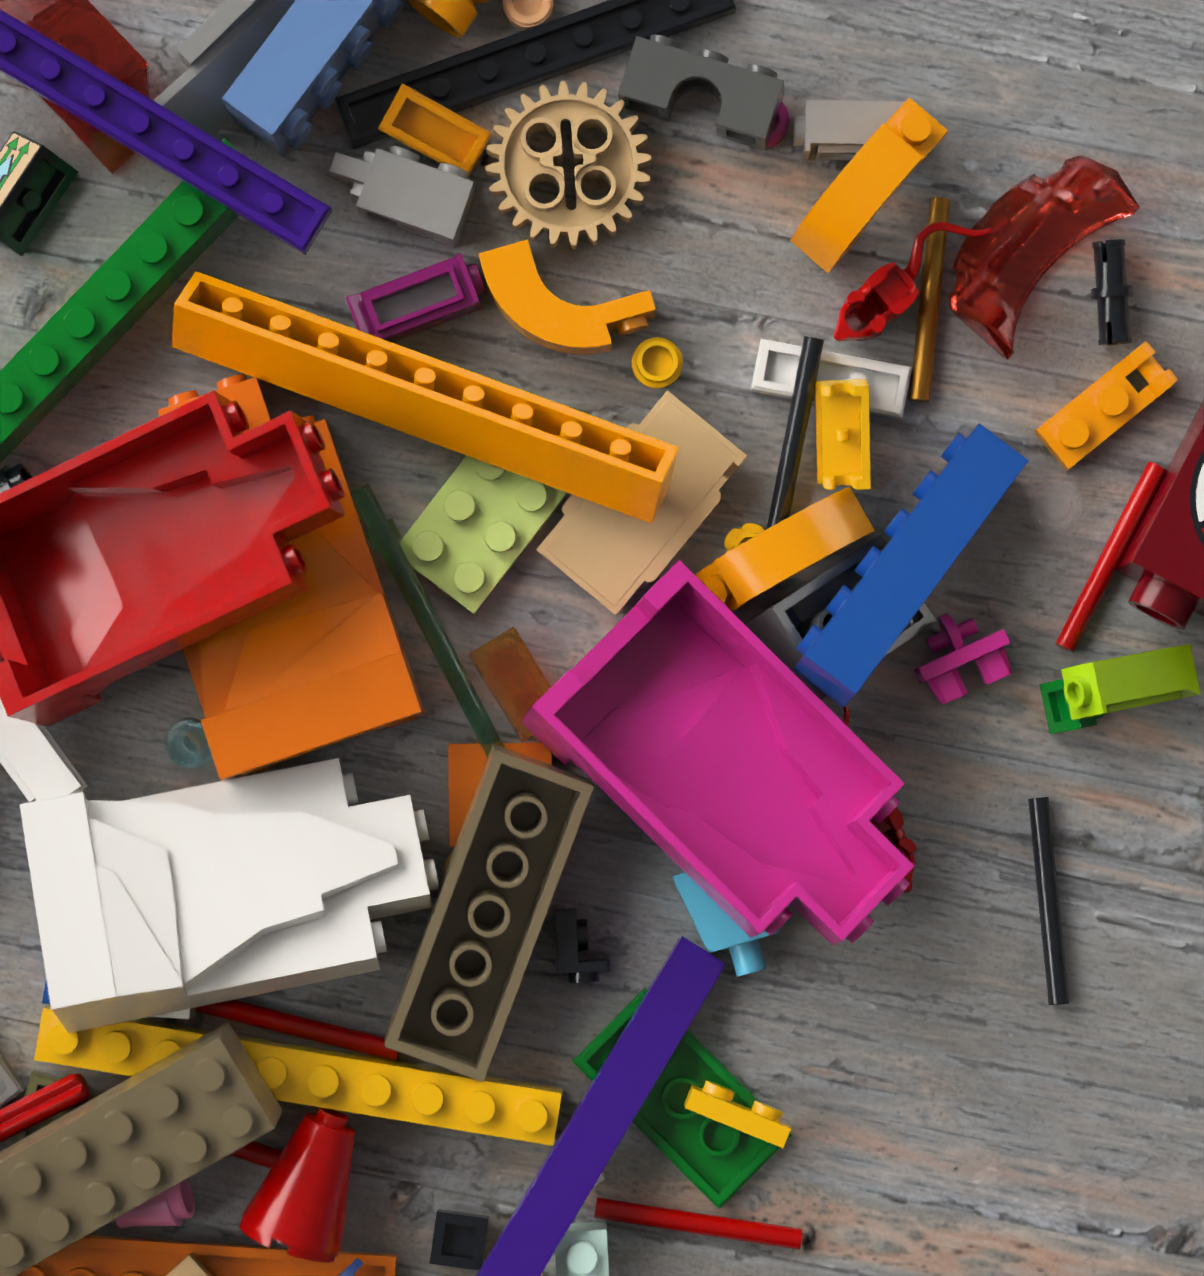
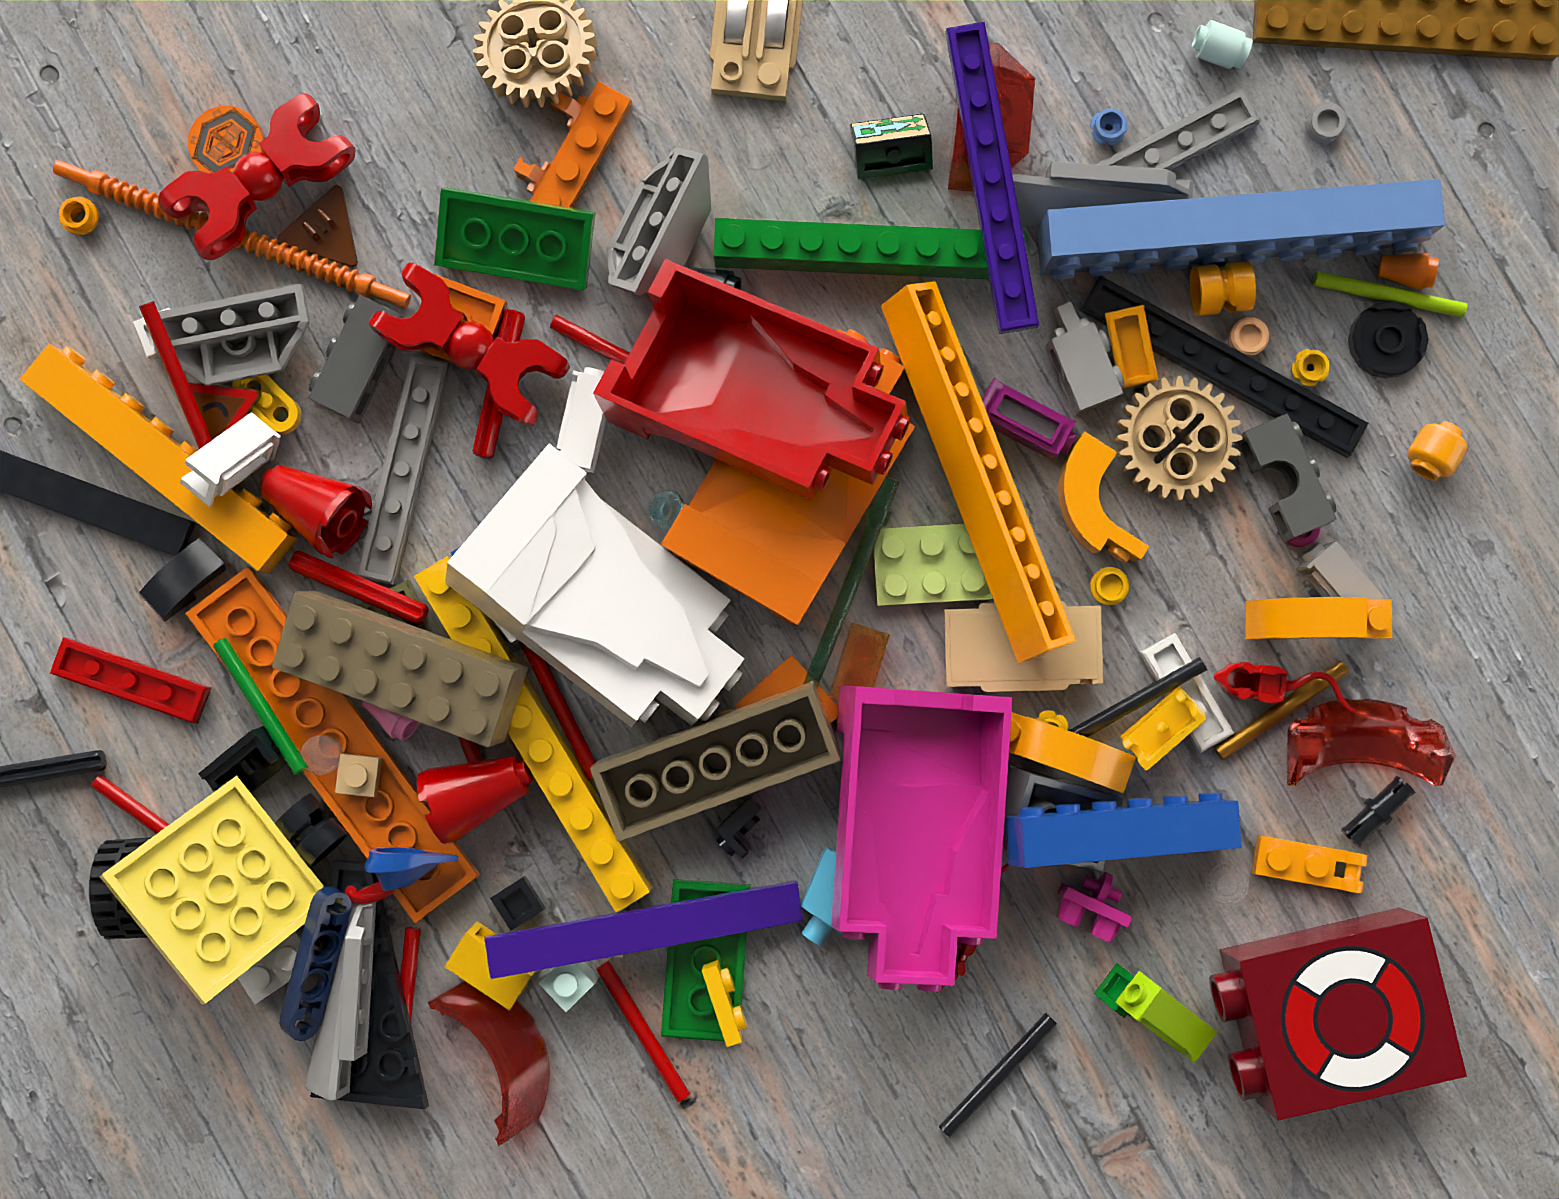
camera: 55 degrees right, 0 degrees up
(1110, 557) = (1225, 941): red bar -> none

